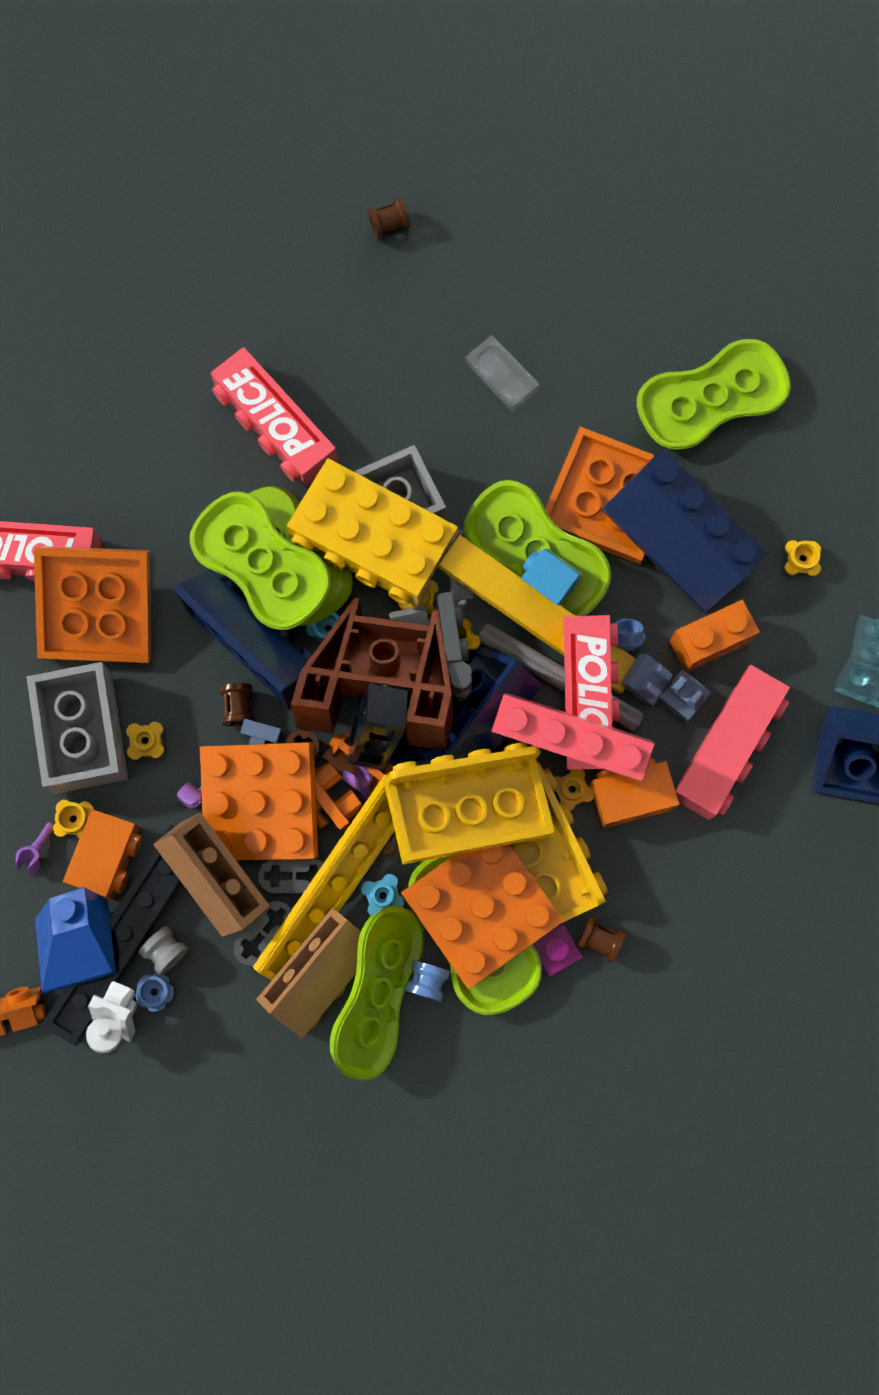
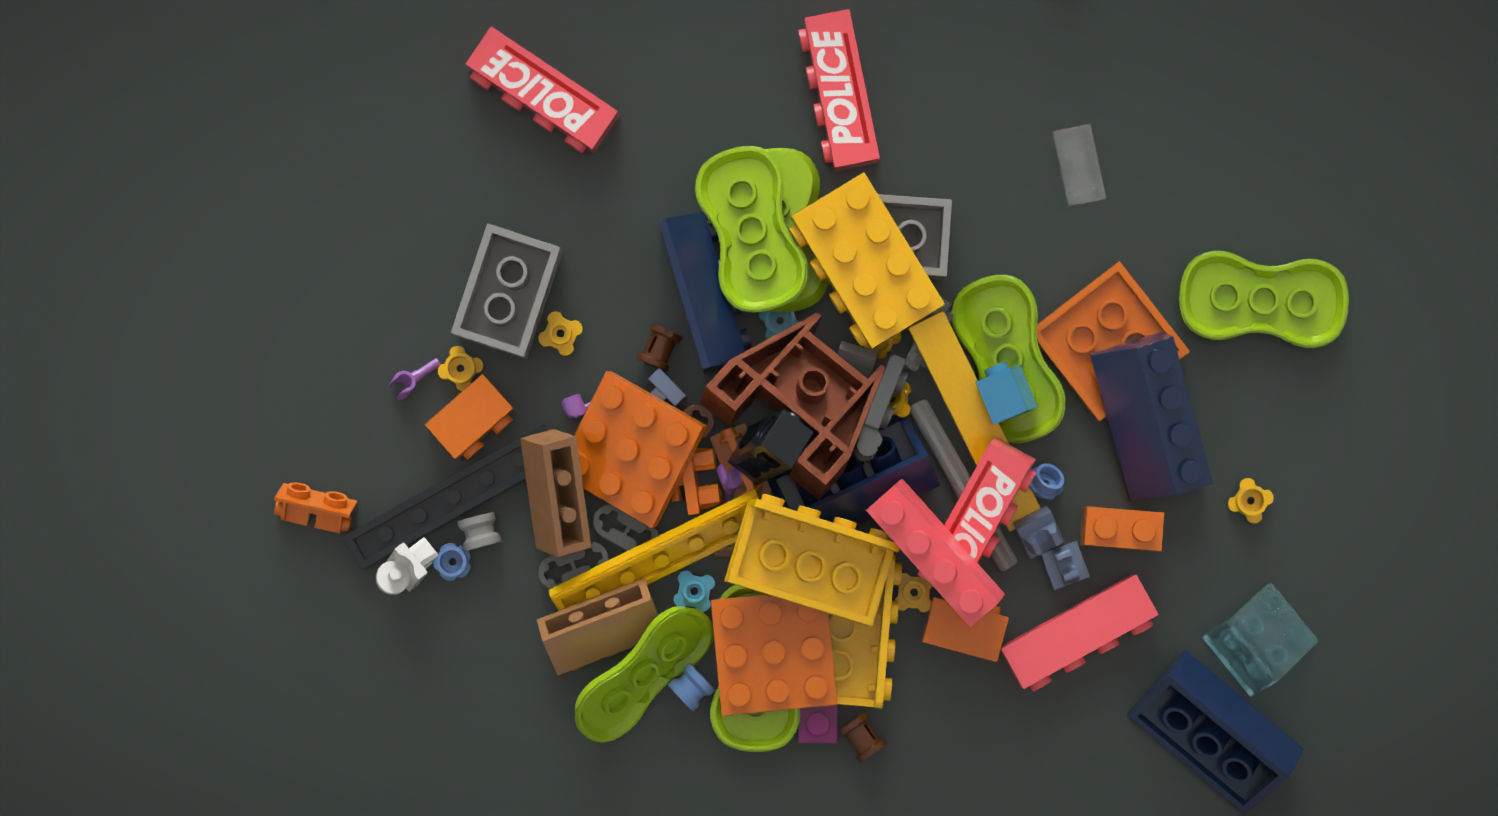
camera: 30 degrees right, 10 degrees up
(74, 940) = (407, 480): blue slope -> none
(93, 604) = (580, 184): orange plate -> none

